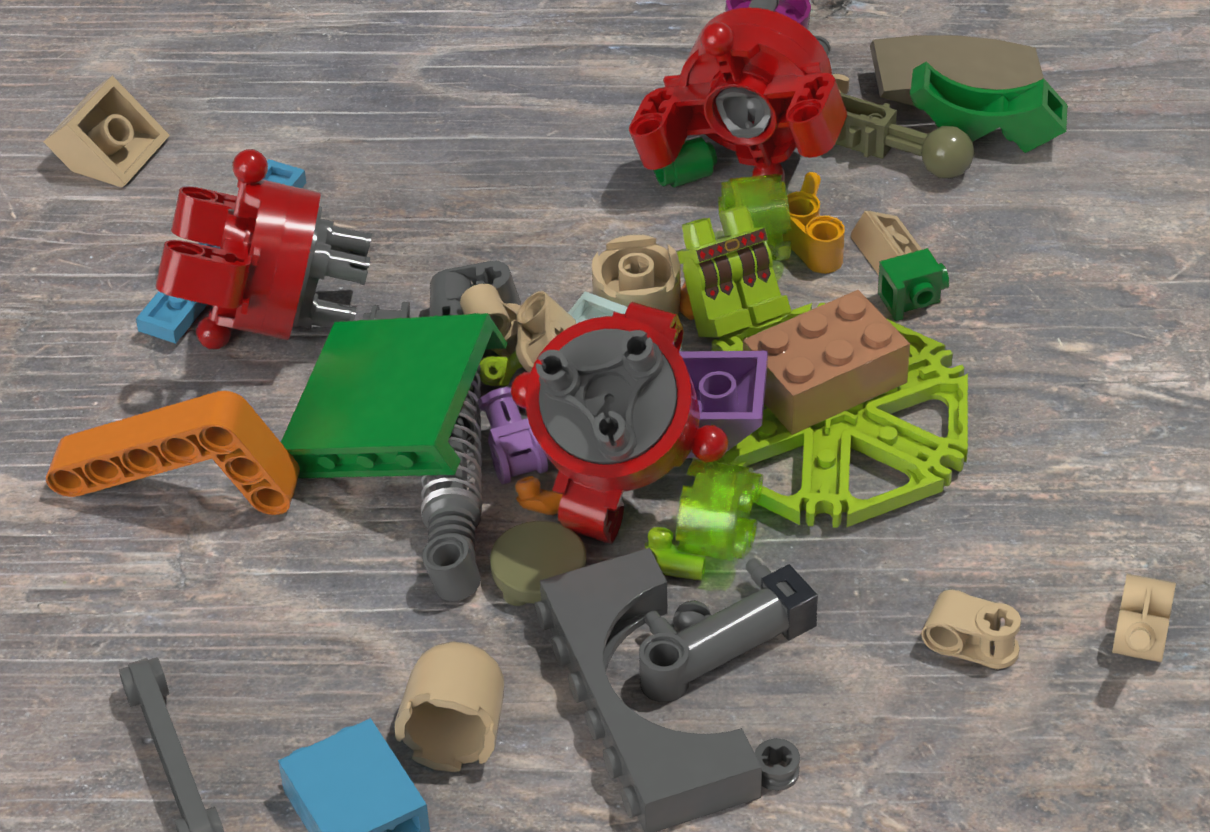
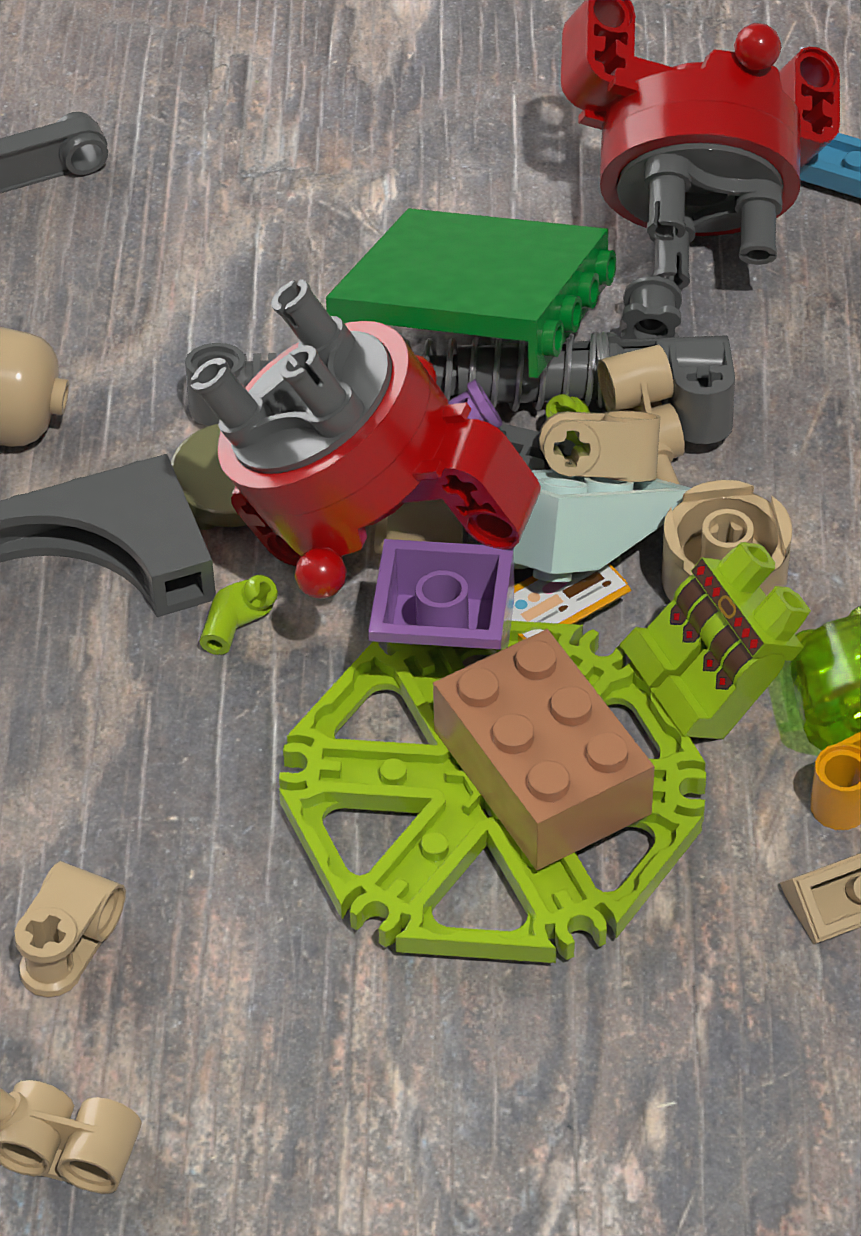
camera: 90 degrees right, 5 degrees up
(175, 436) = (382, 125): orange beam -> none
(674, 659) = (126, 709): dark grey piece -> none
(689, 614) = (139, 635): dark grey hinge -> none
(717, 510) = (270, 633): clear neon green brick -> none
(911, 282) = (758, 890): green brick -> none

